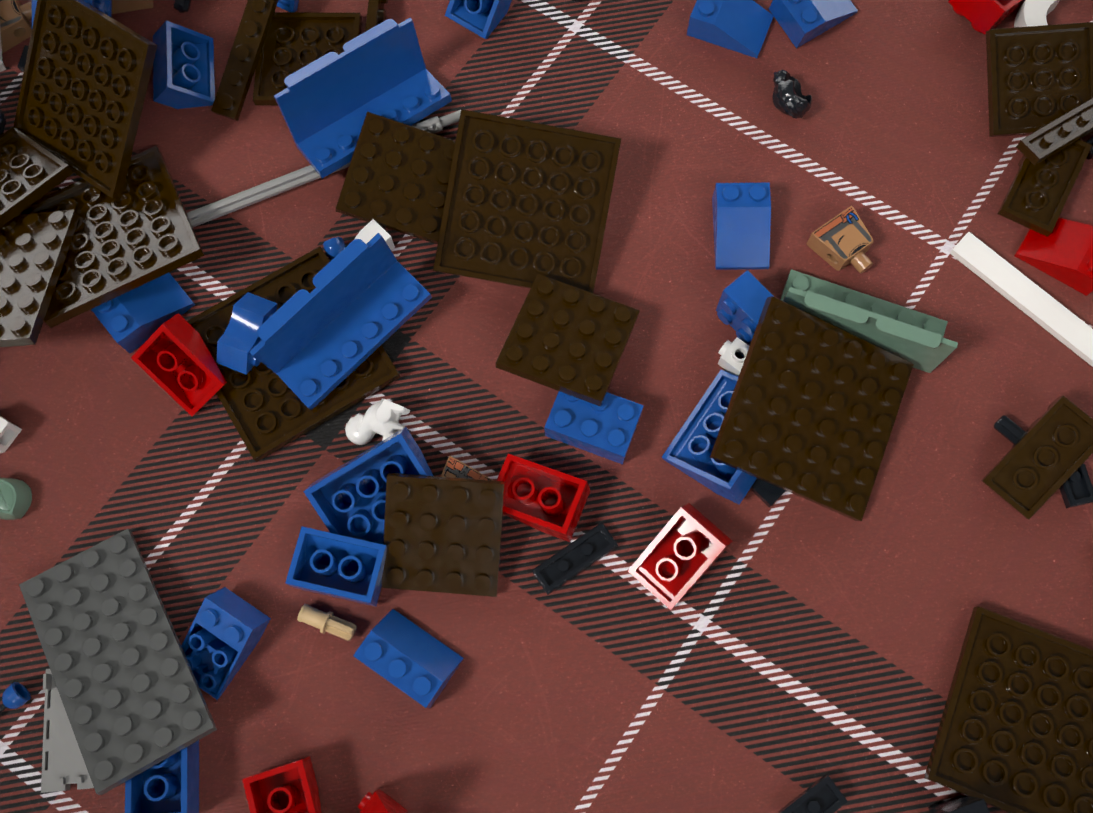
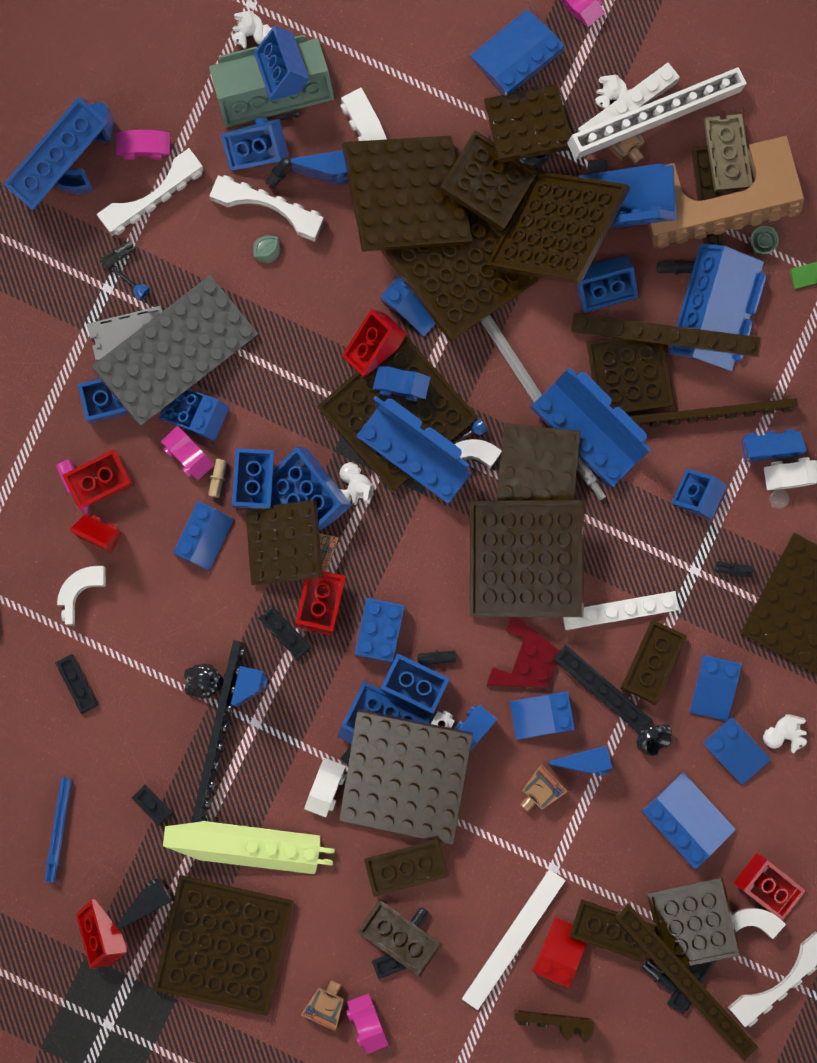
camera: 75 degrees right, 10 degrees up
(278, 662) = (187, 453): none -> dark pink brick
(568, 339) = (431, 603): dark brown plate -> none
(615, 107) = (624, 610): none -> white plate
(629, 698) = (199, 681): none -> black hair
(643, 350) = (436, 657): none -> black axle
(652, 619) = (248, 685): none -> blue slope
(665, 229) = (533, 663): none -> dark red wing
(678, 381) = (415, 683): none -> blue brick
(679, 555) = (297, 701): red slope -> none
(690, 82) = (653, 662): none -> dark brown hinge
(714, 149) = (602, 689): none -> black tile
(730, 686) = (220, 728): none -> black plate
(810, 174) = (589, 761): none -> blue slope
(813, 533) = (324, 787): none -> white brick
(882, 323) = (485, 798): sand green piece -> none
(891, 666) = (247, 846): none -> yellowish green hinge
(902, 76) = (688, 820): none -> slope
(940, 434) = (406, 867): none -> dark brown hinge

